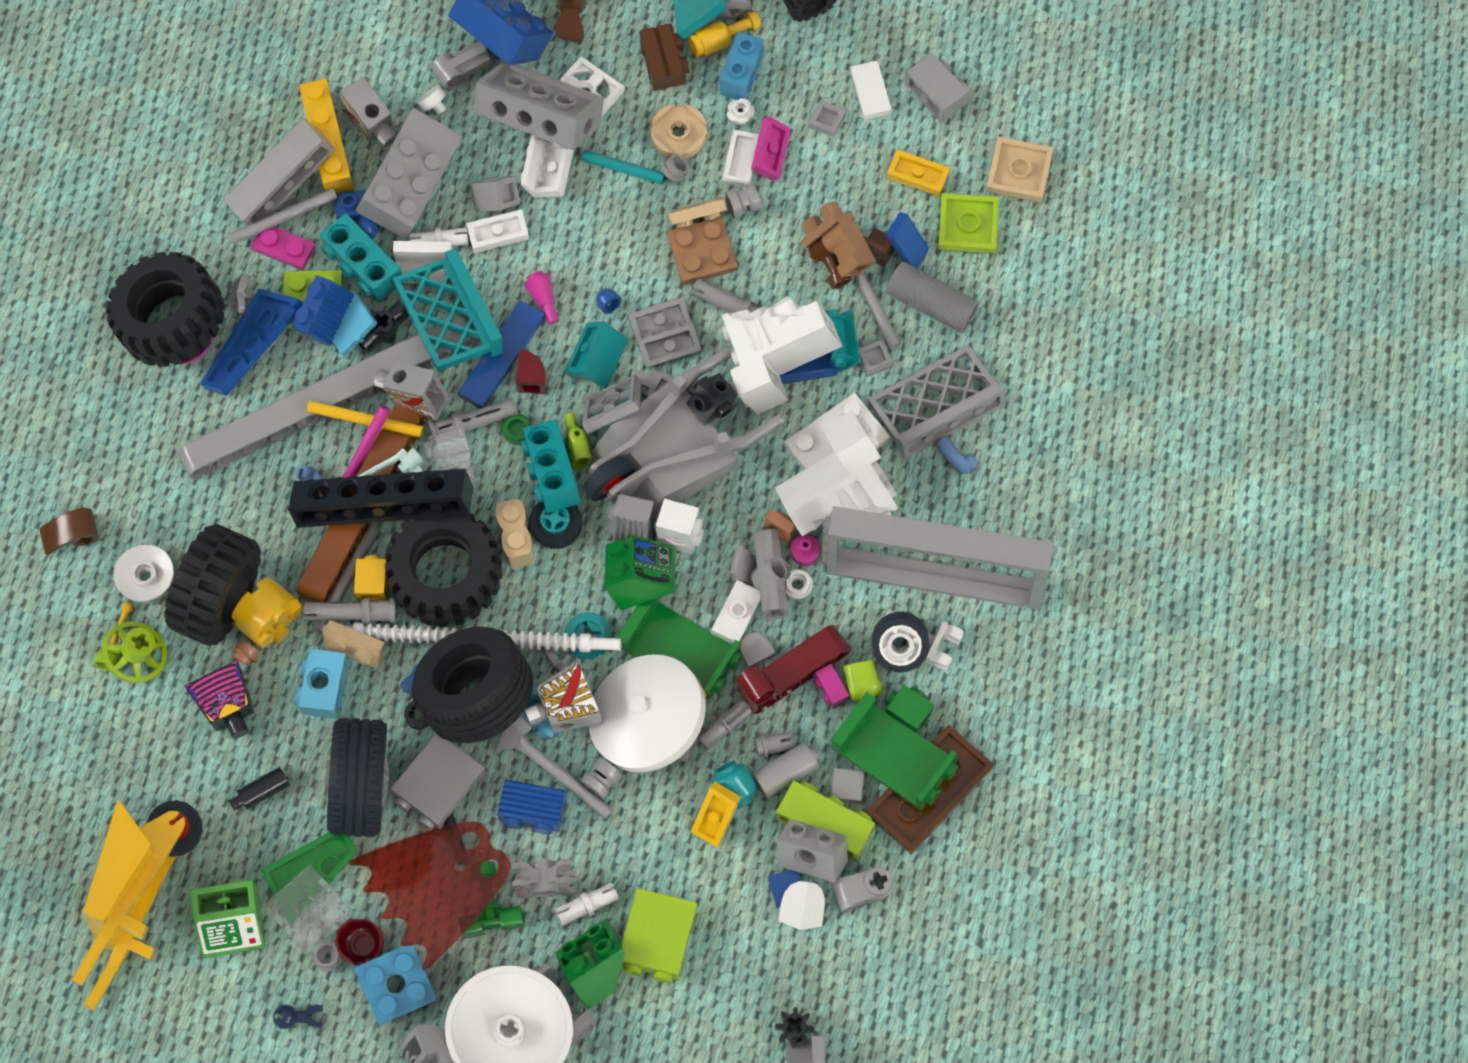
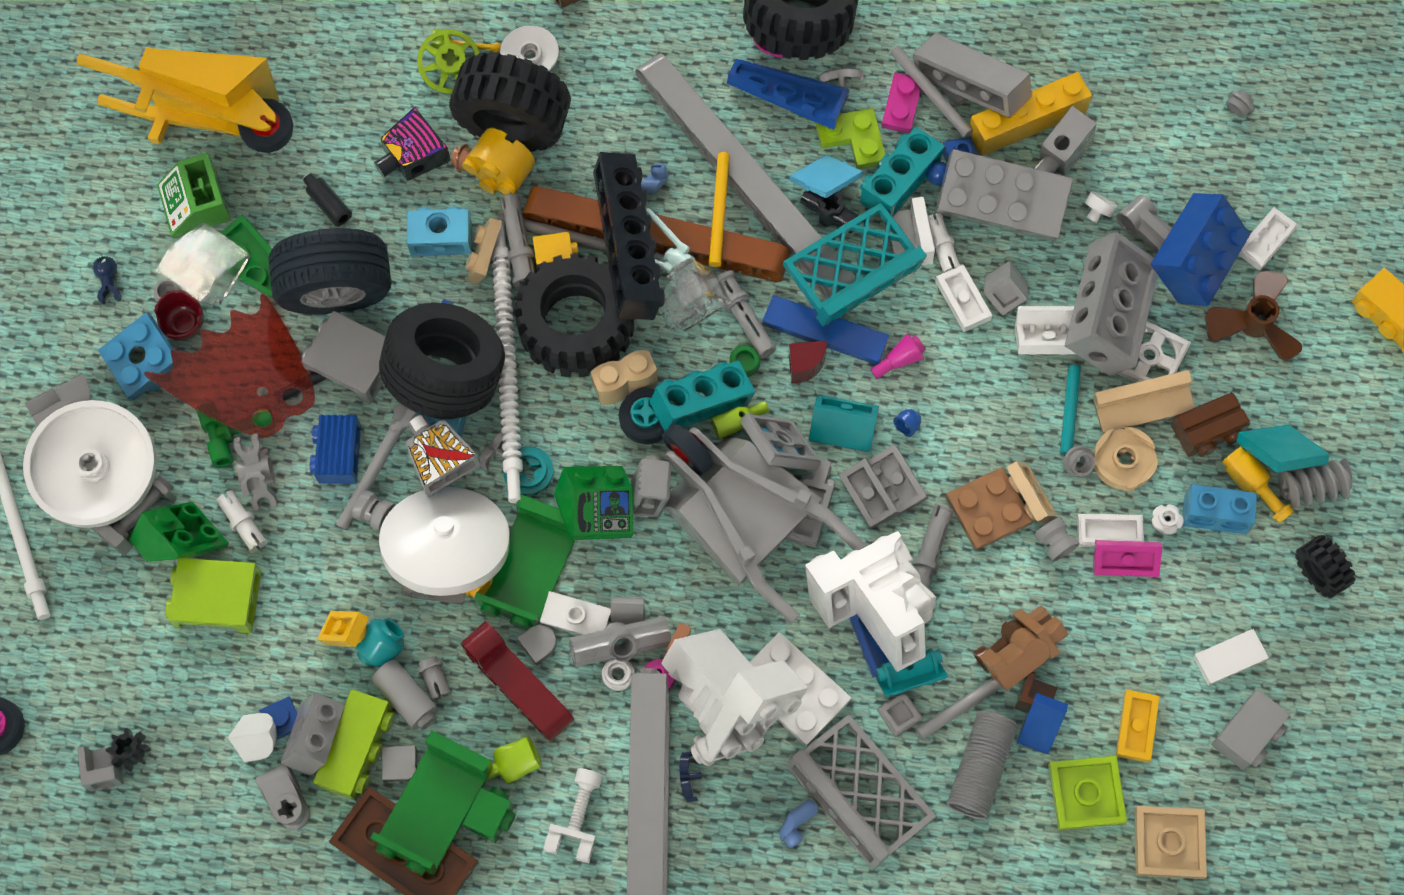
camera: 80 degrees right, 0 degrees up
(322, 310) = (832, 146): blue brick -> none
(367, 441) = (695, 216): dark pink bar -> none
(413, 389) = (754, 233): light grey torso -> none
(631, 104) = (1144, 401): none -> tan panel
(679, 526) = (653, 535): white brick -> none
(712, 398) = (789, 539): black brick -> none
(723, 724) = (445, 620): light grey axle -> none
(827, 118) = (1182, 615): light grey tile -> none
(831, 685) = (507, 727): dark pink piece -> none
(900, 658) = (561, 791): wheel -> none

